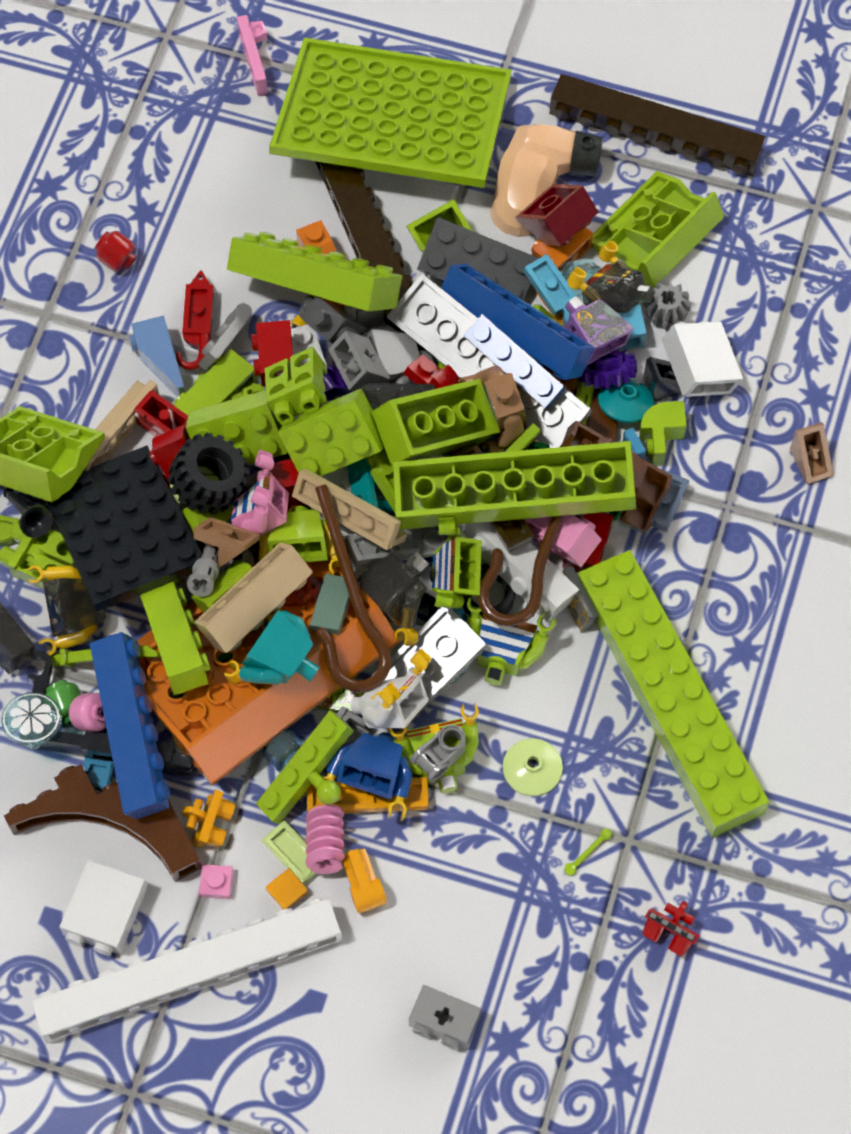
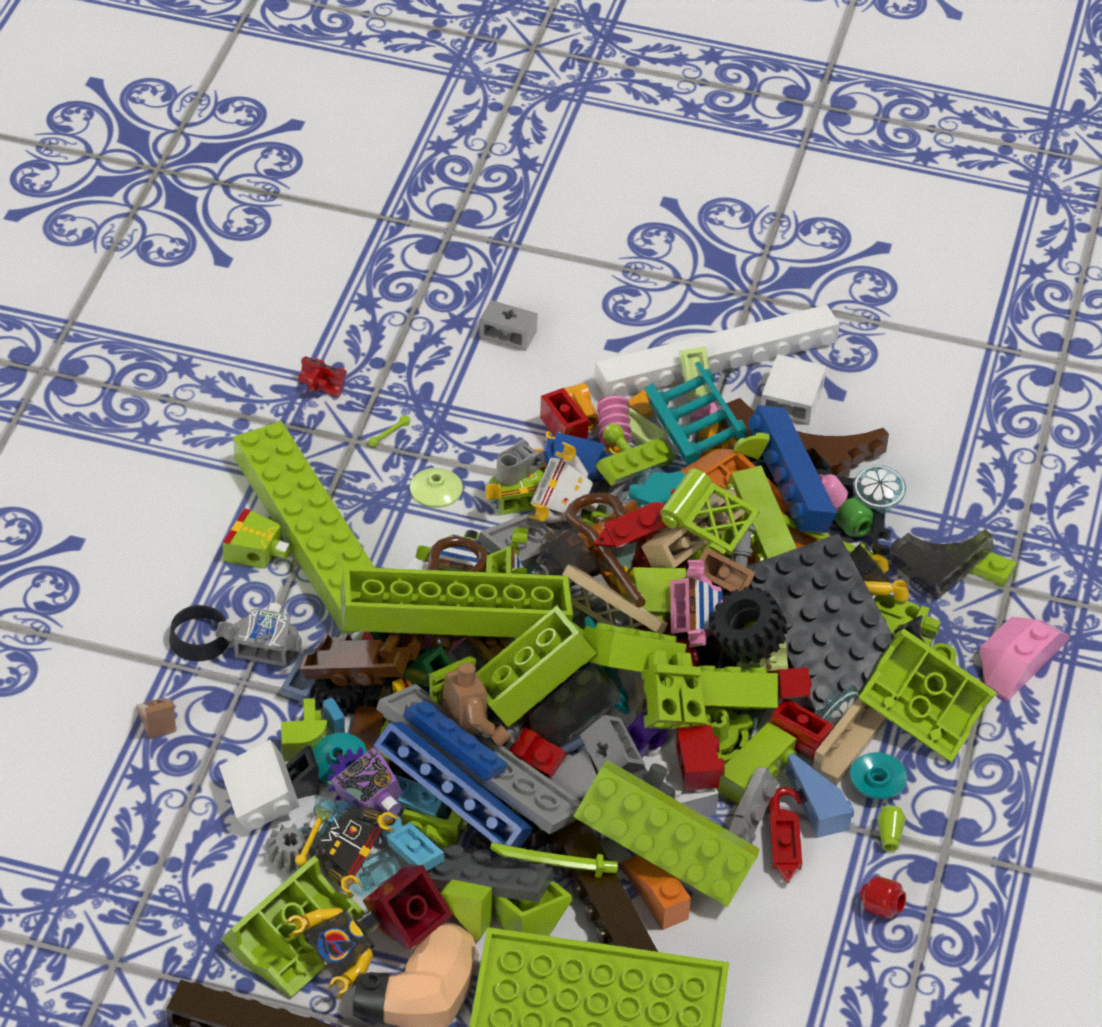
camera: 175 degrees right, 20 degrees down
(94, 327) = (891, 825): none -> lime cone
(96, 368) = (878, 775): none -> teal dish
(126, 438) = (838, 705): none -> clear light blue dish
(171, 746) = (752, 446): none -> lime tile
(219, 920) = (688, 359): none -> yellowish green tile
(249, 814) = (680, 434): none -> teal fence
(256, 588) = (687, 505): none -> lime piece
(308, 594) = (632, 526): none -> red plate
(383, 845) = (563, 415): none -> red brick
(420, 257) = (597, 865): none -> lime sword
(504, 228) = (470, 905): none -> lime slope
(617, 190) = (339, 942): none -> torso
(641, 286) = (324, 810): none -> hinge
(710, 544) = (263, 636): none -> light grey torso
(731, 673) = (254, 541): none -> lime torso
(772, 582) = (199, 652): none -> black tyre

